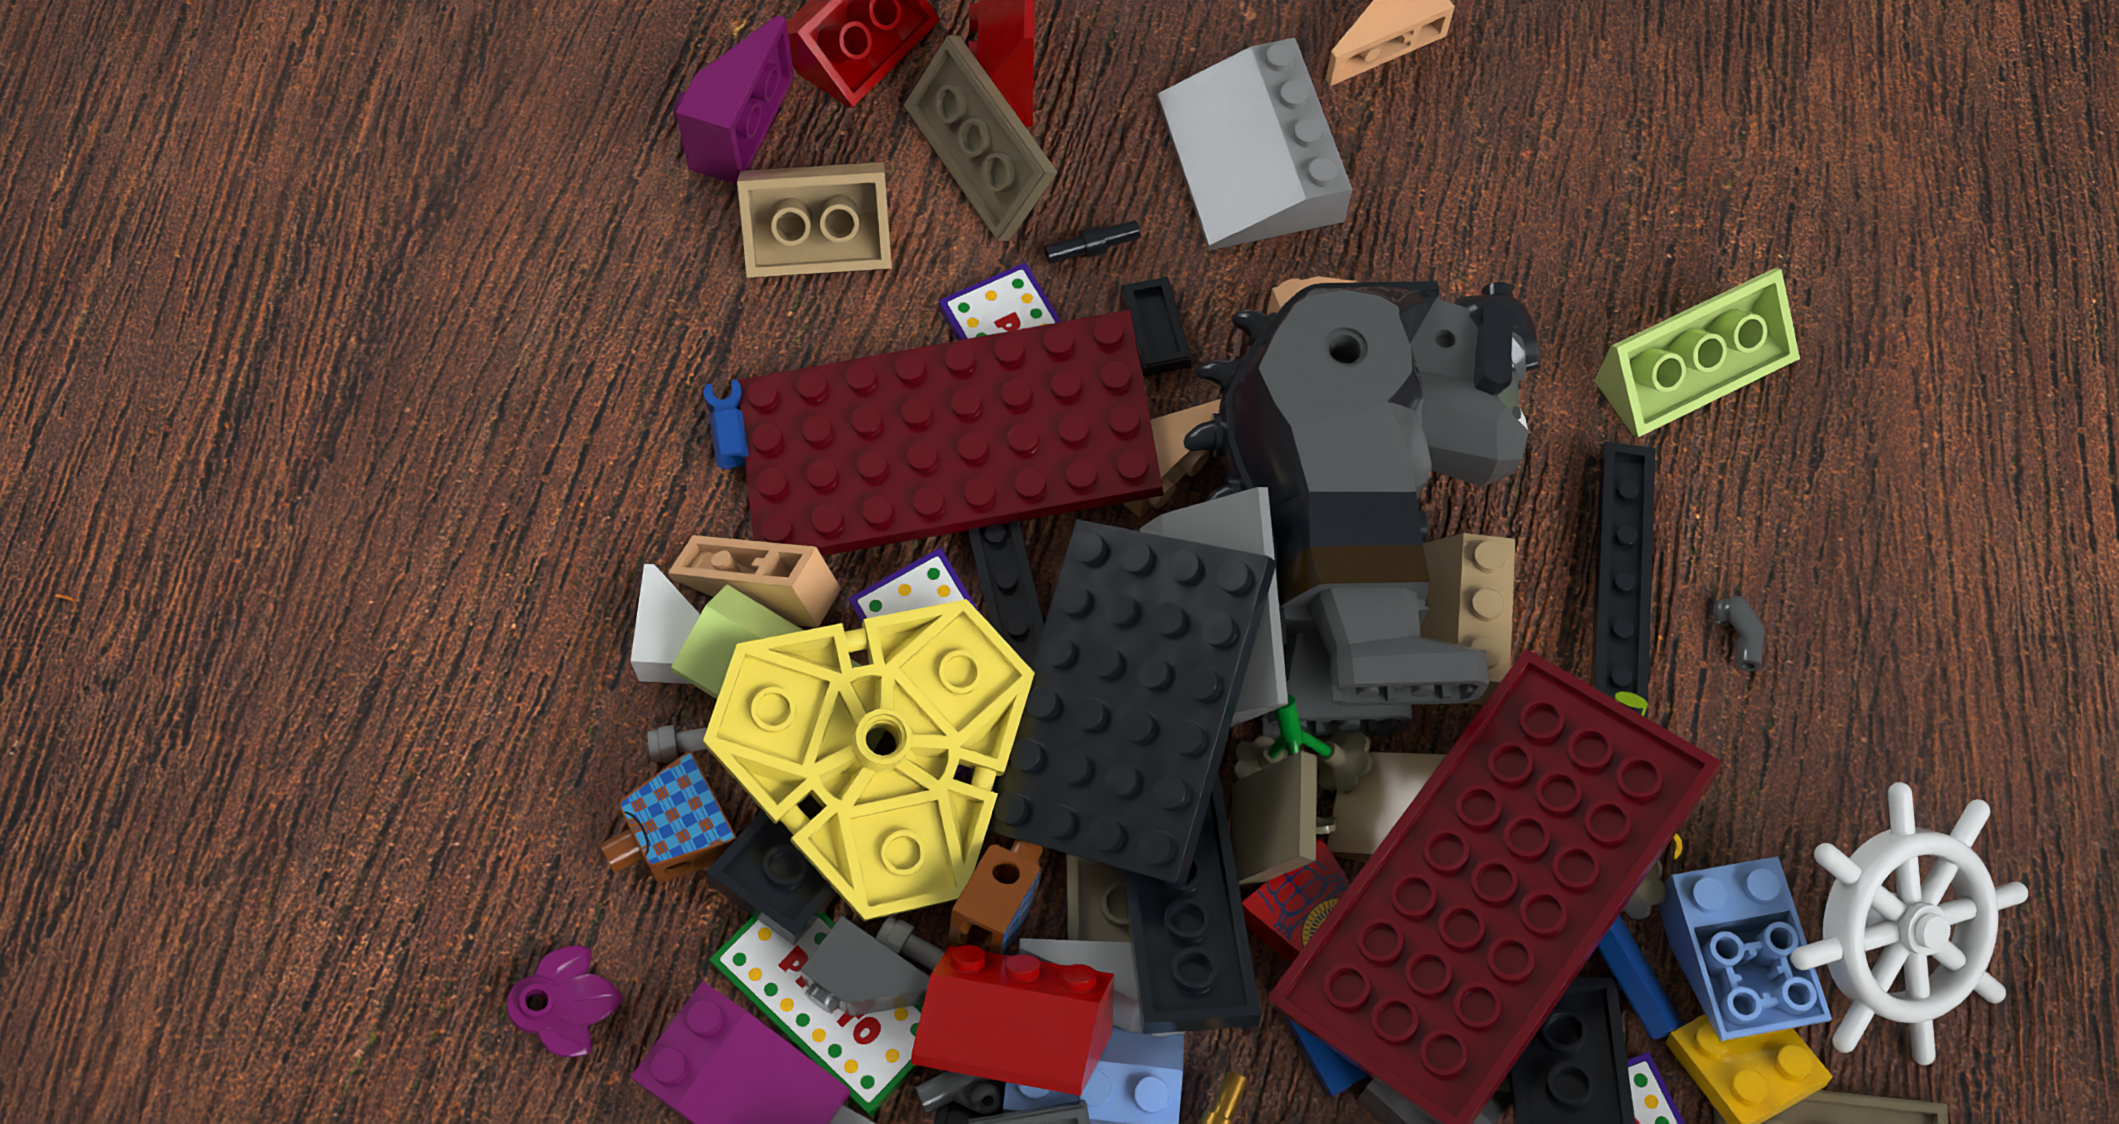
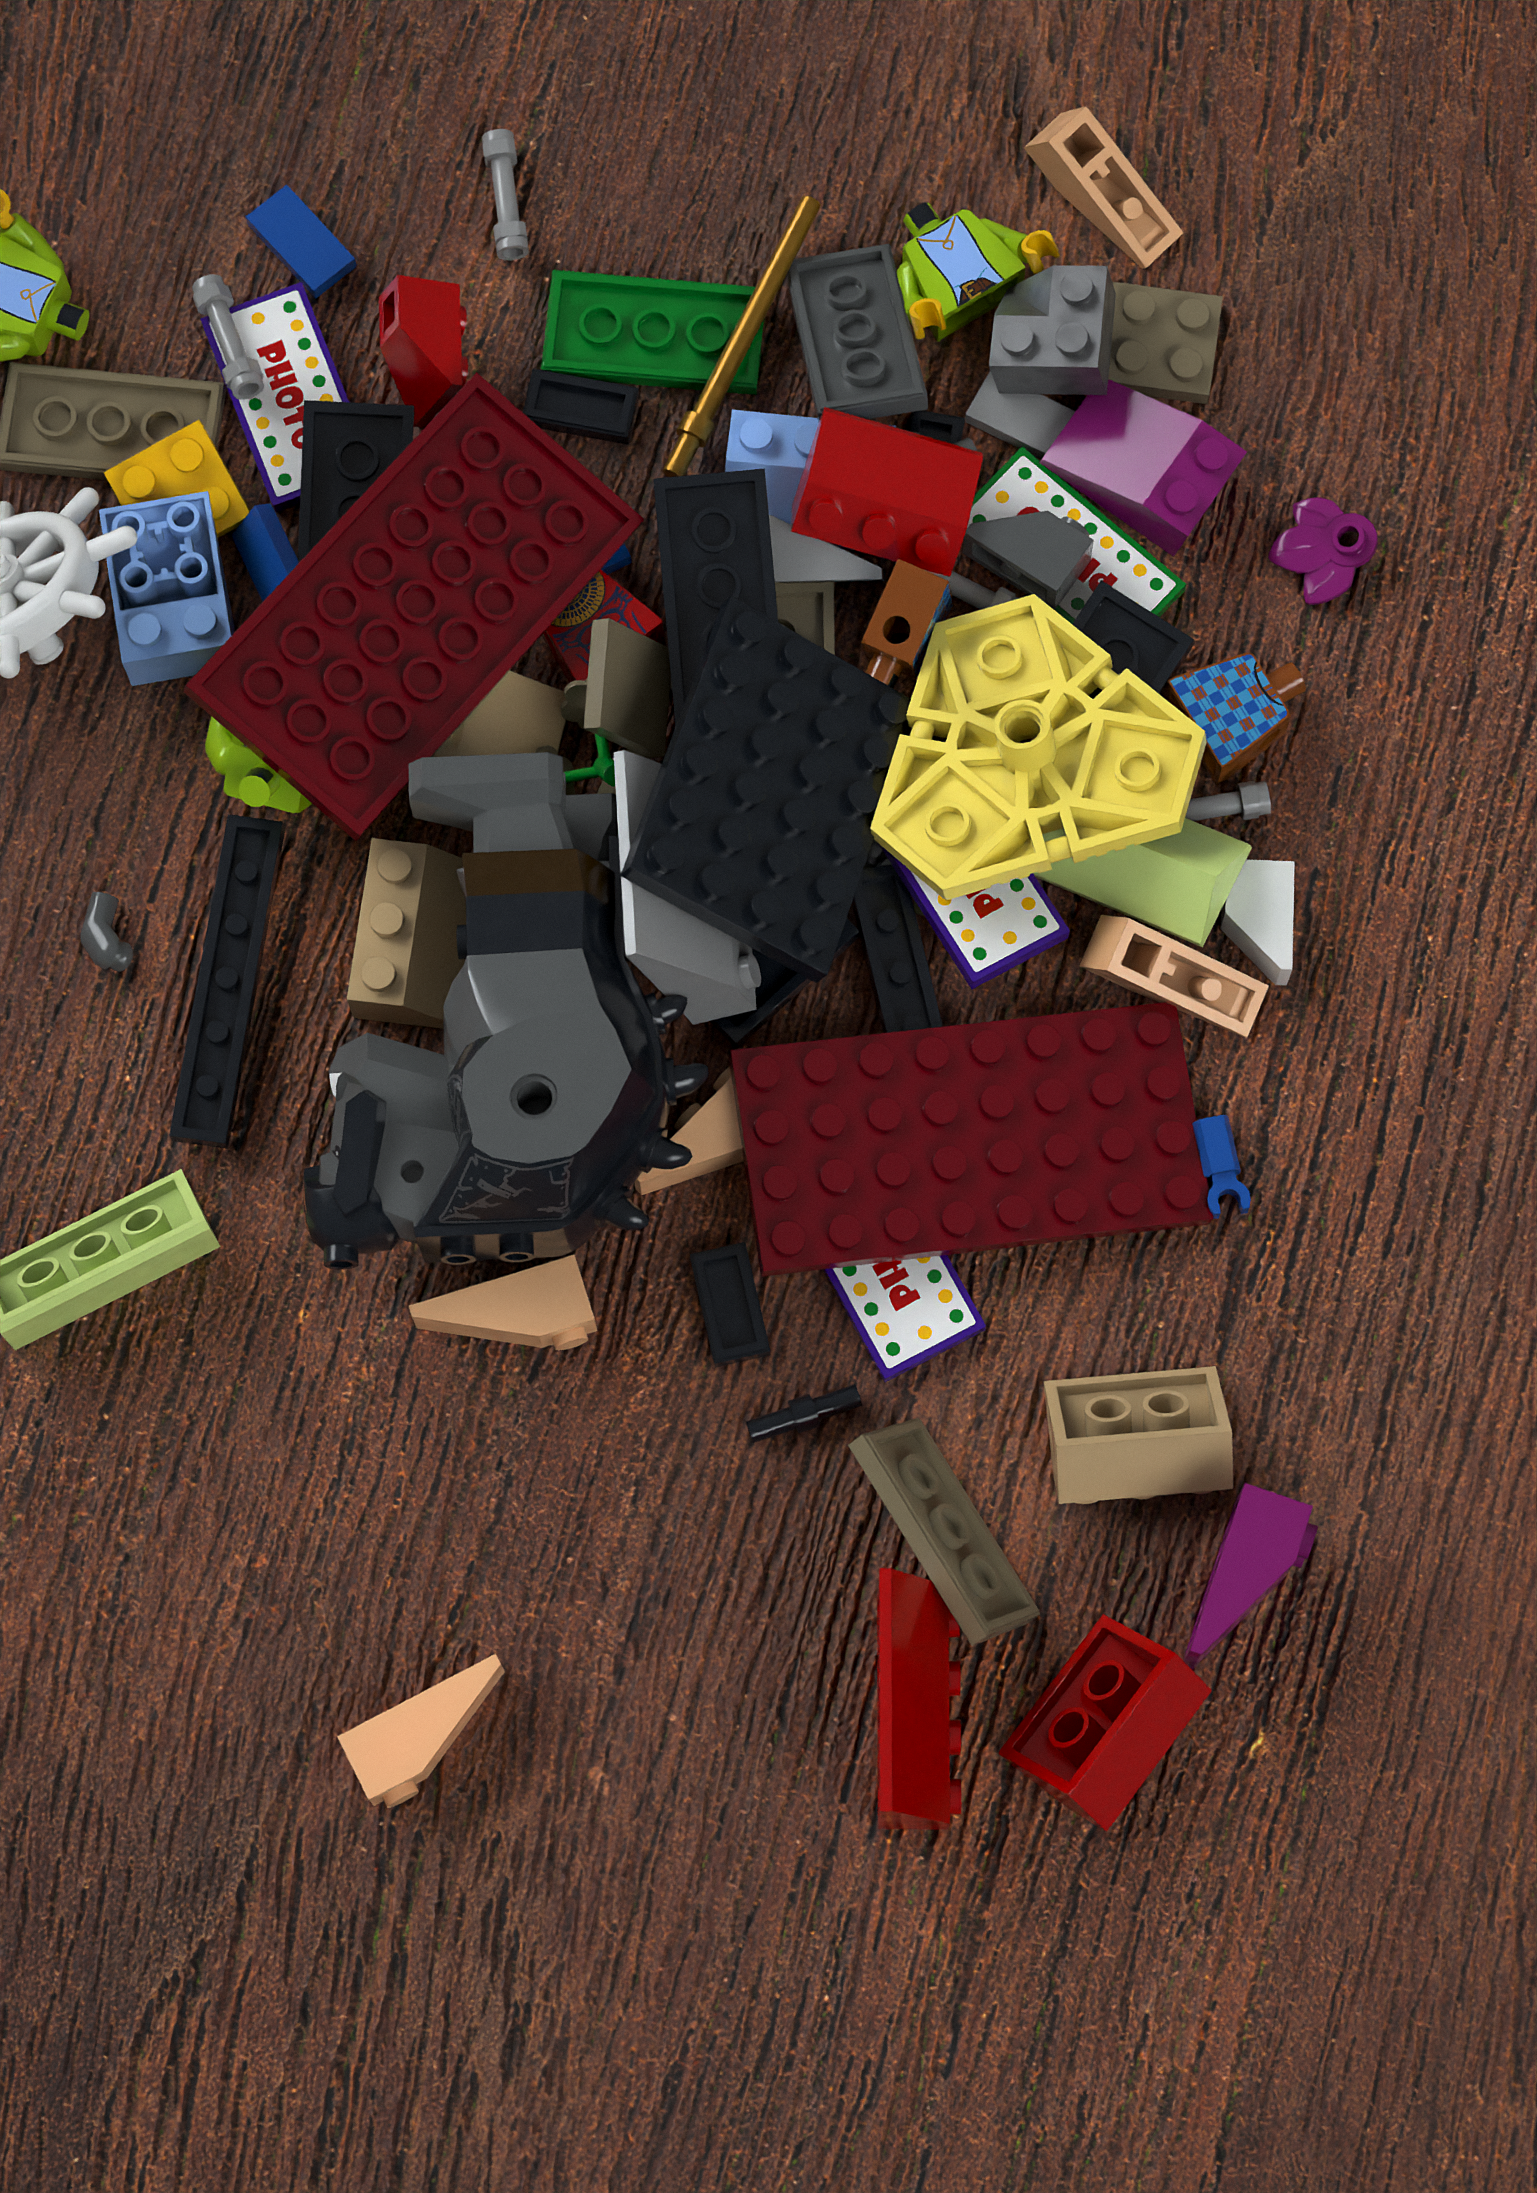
camera: 175 degrees left, 10 degrees up
(1256, 147) = (605, 1545): light grey slope -> none

